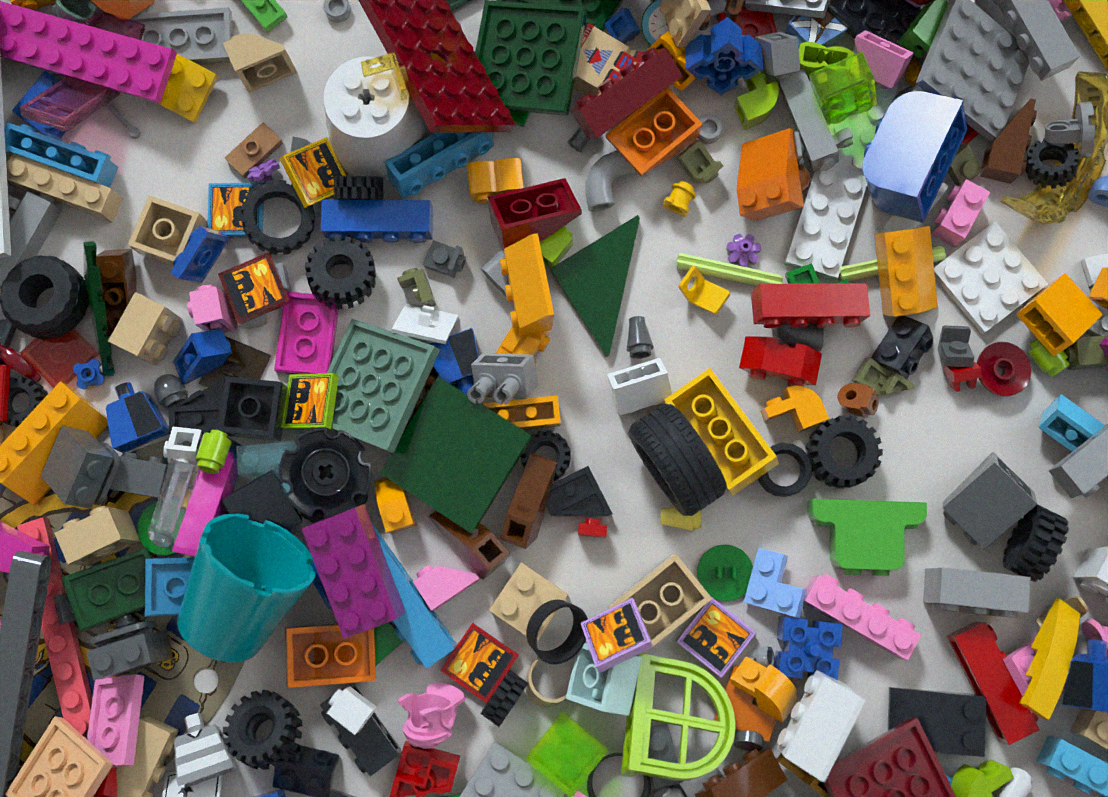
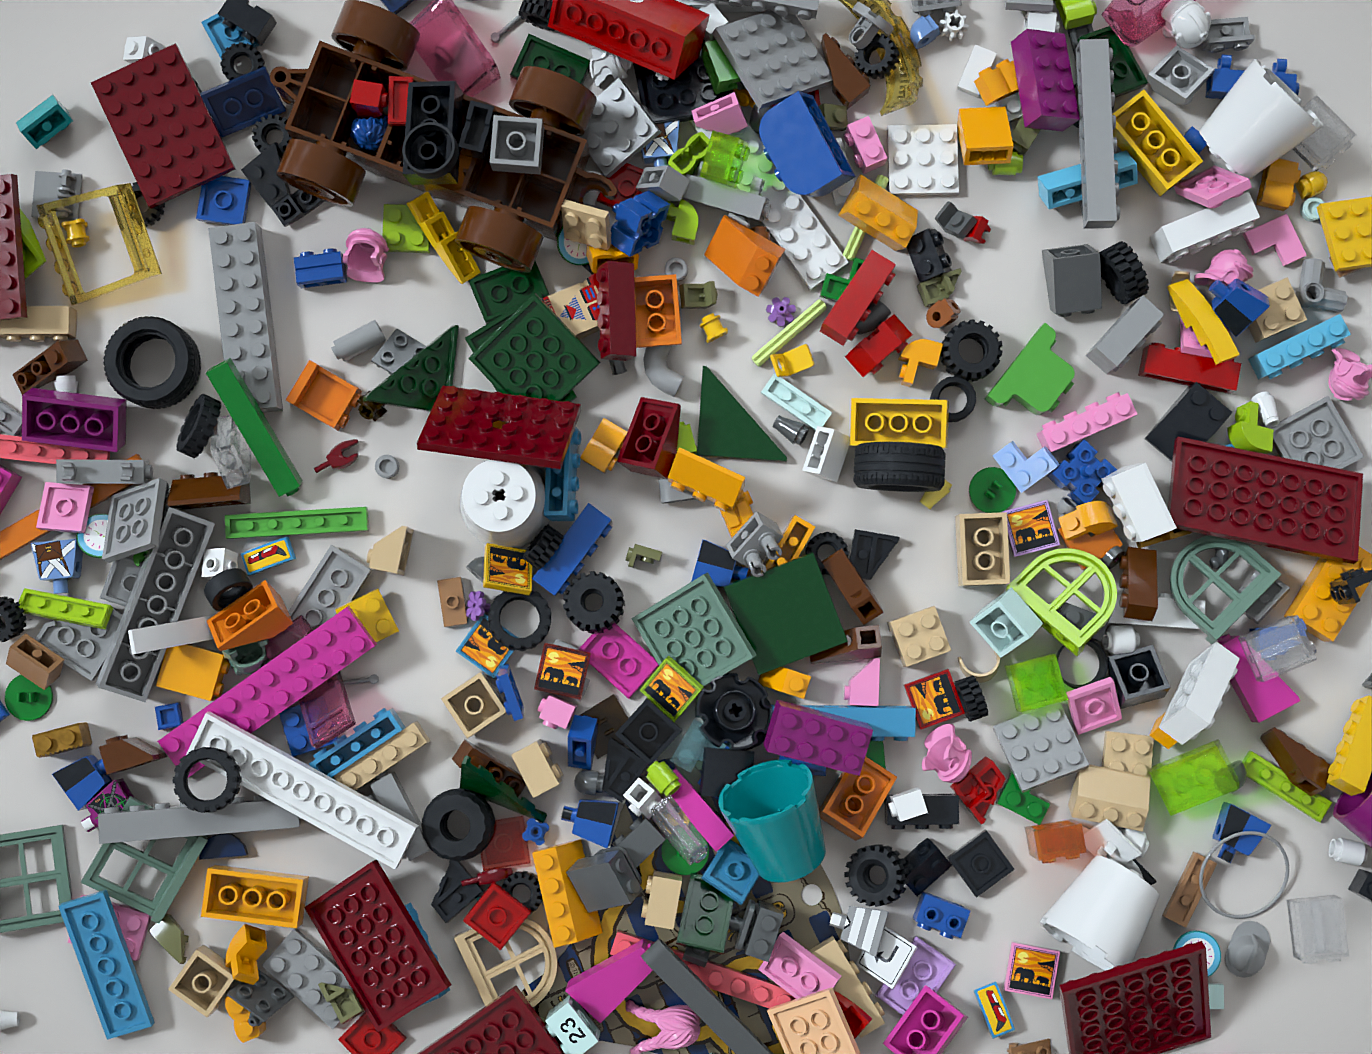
camera: 60 degrees left, 5 degrees up
(388, 62) = (503, 461): clear yellow bracket -> none
(425, 323) = (674, 569): white piece -> none
(445, 259) = (635, 522): dark grey bracket -> none
(570, 646) = (967, 625): black tyre -> none
(592, 528) = (899, 557): red plate -> none
(616, 635) = (987, 592): tile -> none
(622, 26) = (558, 274): blue tile -> none
(668, 324) = (796, 402): none -> light aqua plate
(1013, 363) = (997, 191): dark red dish -> none

